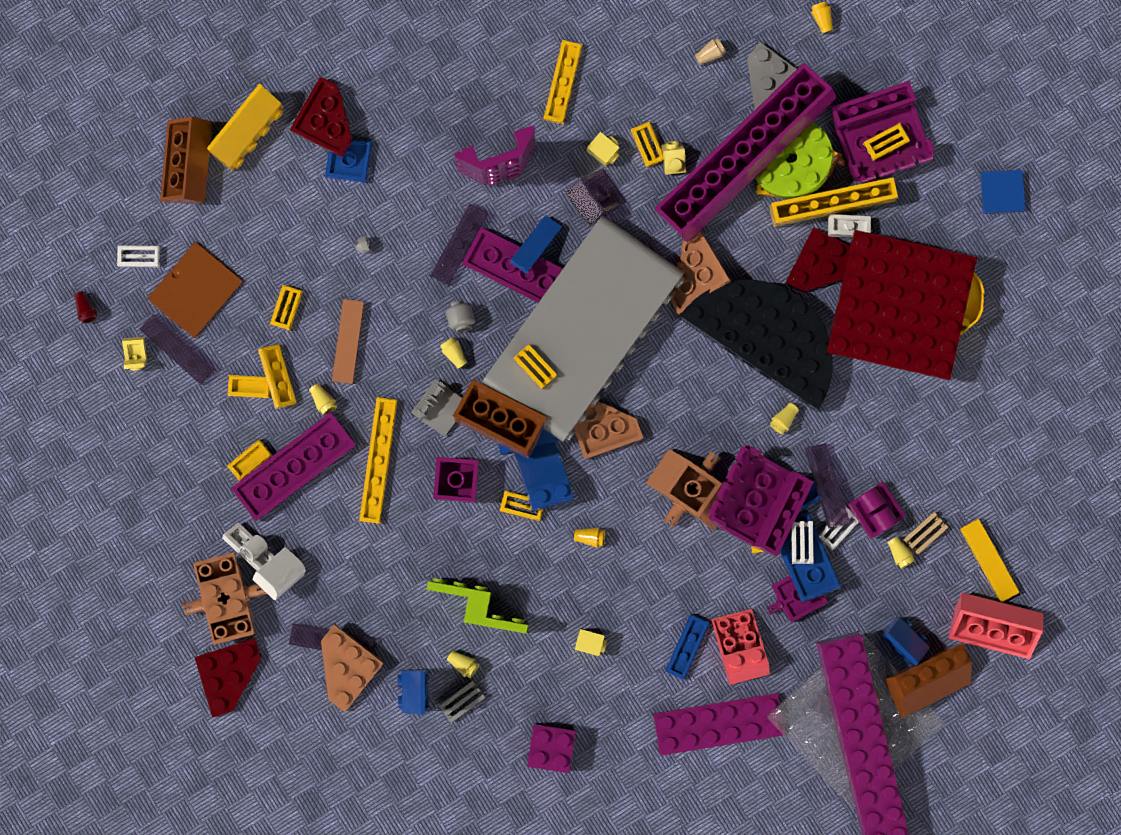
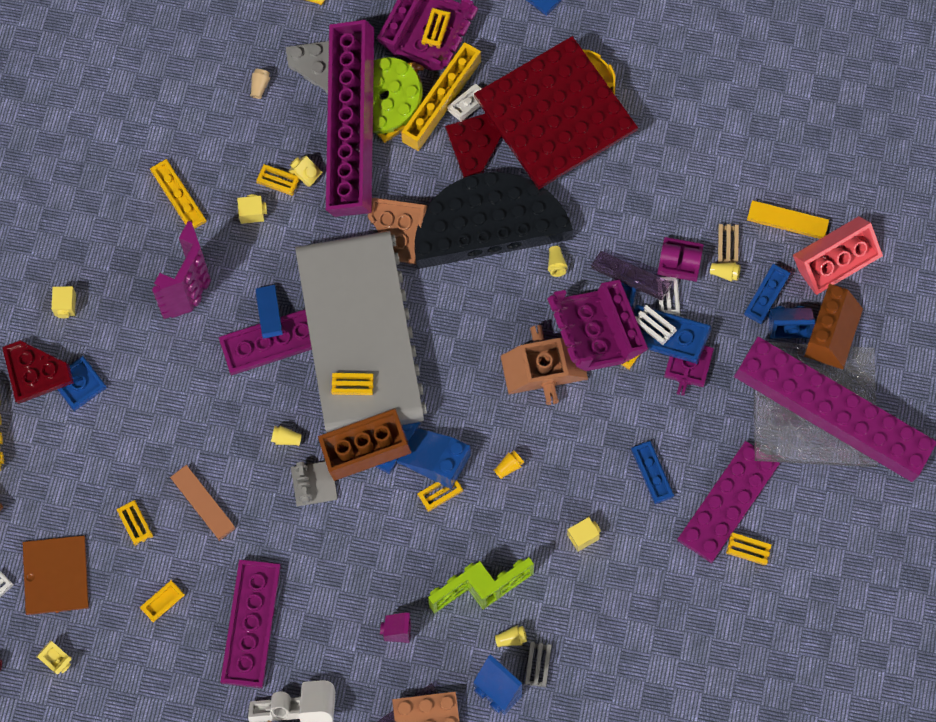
camera: 40 degrees left, 15 degrees down
(177, 349) = (83, 627): clear purple tile -> none
(249, 460) = (214, 651): yellow tile -> none
(277, 376) = (175, 573): yellow tile -> none
(323, 400) = (228, 557): light yellow cone -> none
(363, 245) = (147, 428): light grey hinge -> none
(378, 460) = (307, 561): yellow tile -> none
(388, 575) = (396, 628): none -> magenta slope
(397, 85) = (63, 301): none -> light yellow brick
(456, 480) = (376, 516): magenta brick -> none
(459, 244) = (215, 365): clear purple tile -> none
(460, 316) = (265, 408): light grey head -> none
(551, 748) = (633, 631): magenta brick -> none
(595, 196) = (277, 244): clear purple slope -> none
(605, 430) = (445, 385): nougat plate -> none
(704, 788) = (765, 553): none -> yellow tile
(740, 647) = (688, 435): coral slope -> none
(912, 601) = (767, 294): none -> blue plate

